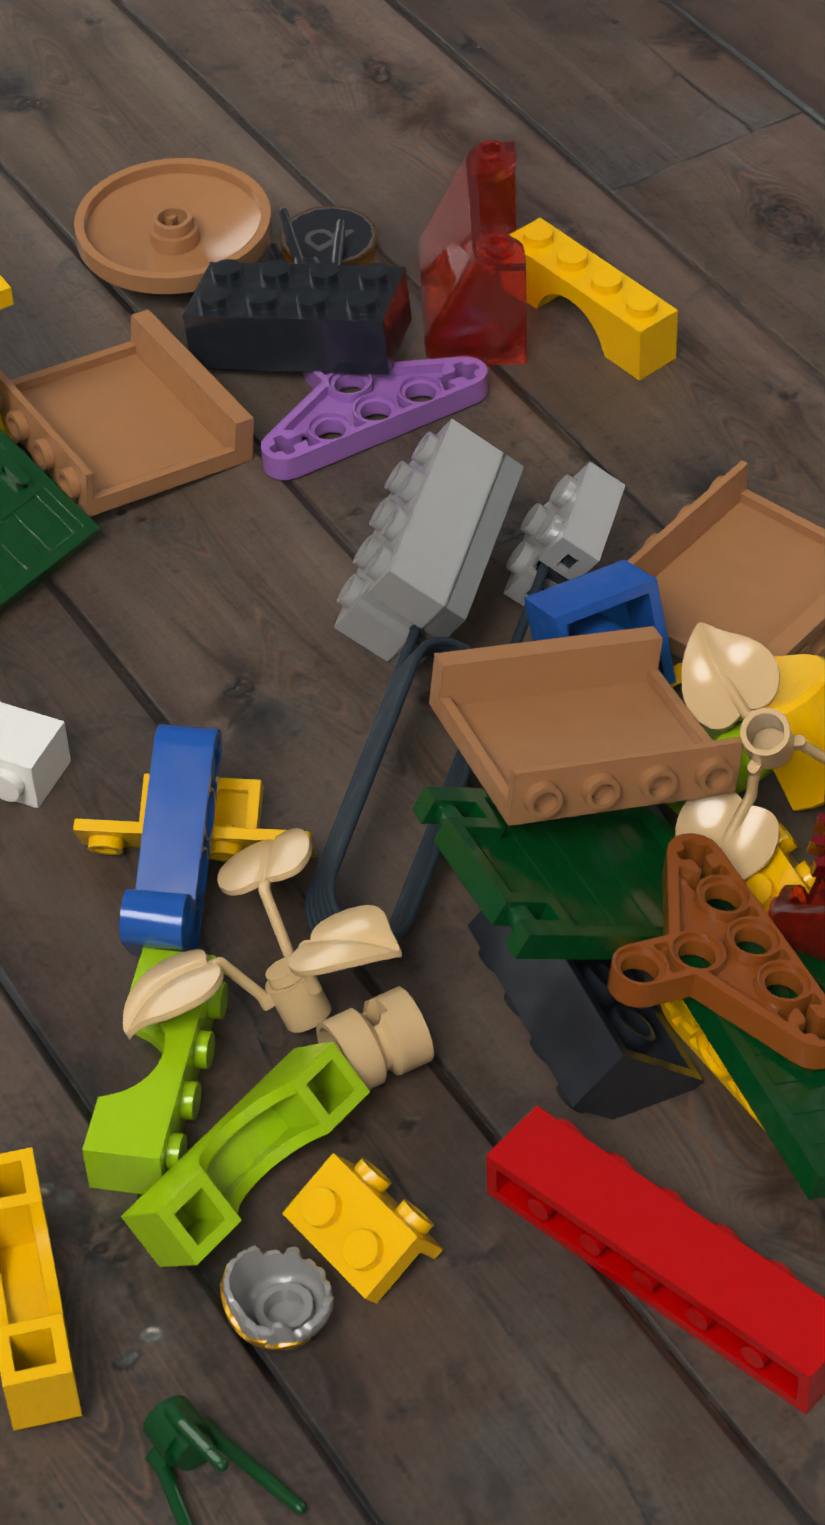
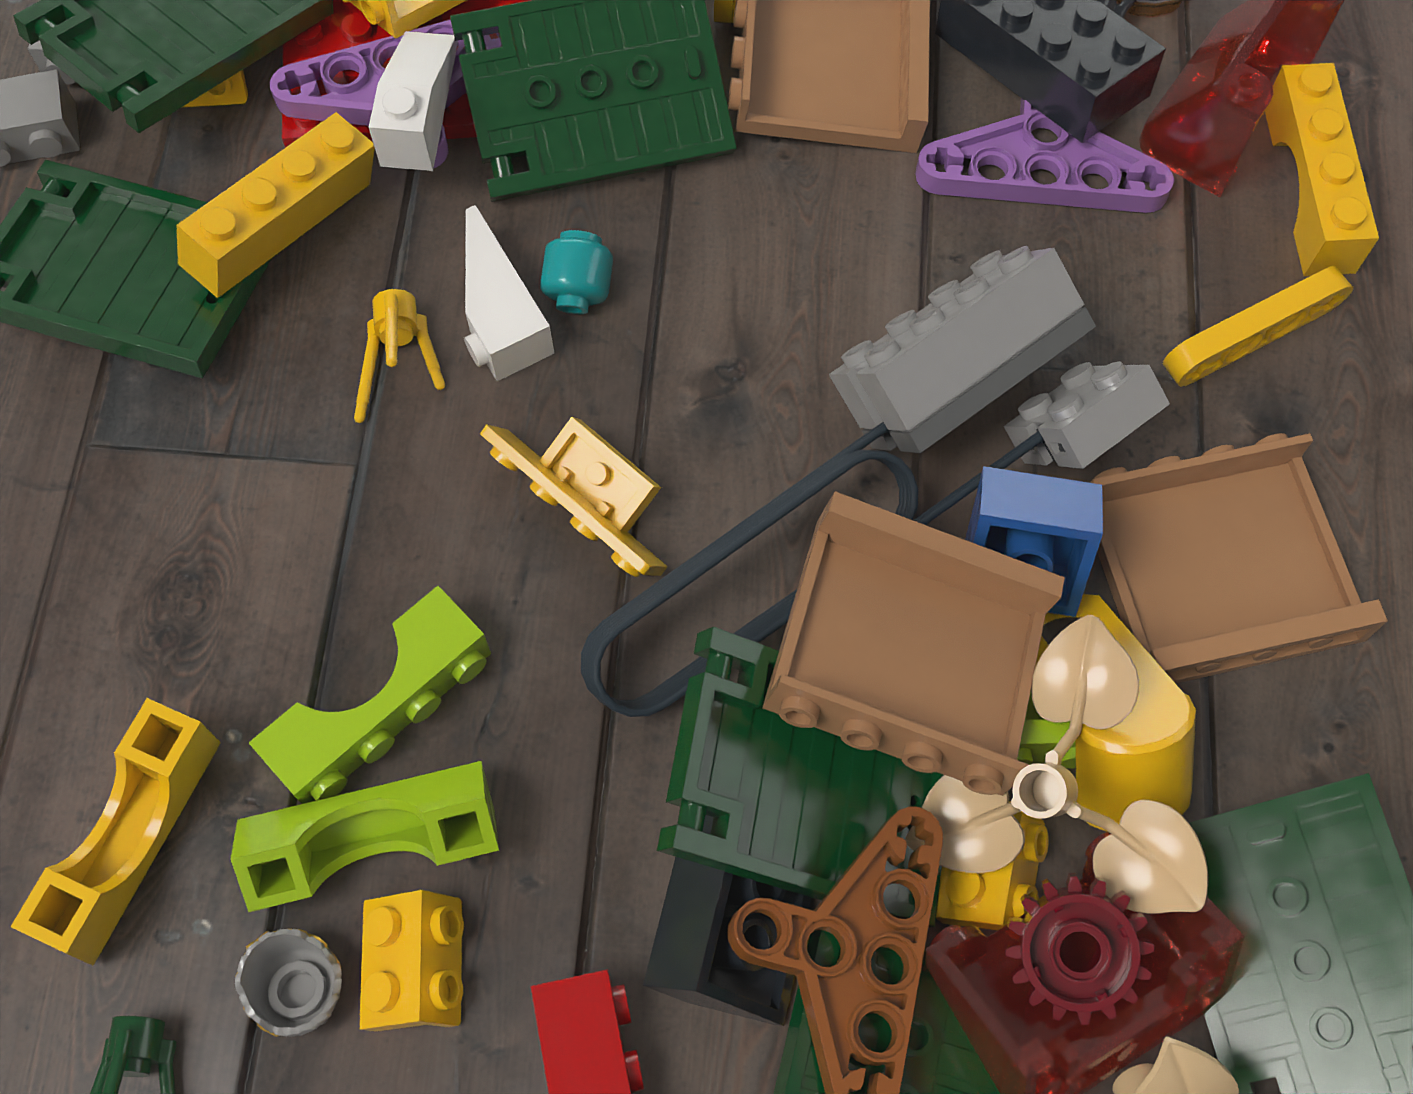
camera: 35 degrees right, 20 degrees up
(43, 679) = (576, 271): none -> teal head
(175, 842) = (527, 513): blue beam -> none
(337, 943) = (531, 715): tan plant -> none
(382, 1038) = (545, 800): tan wheel -> none
(641, 415) = (1257, 326): none -> yellow beam

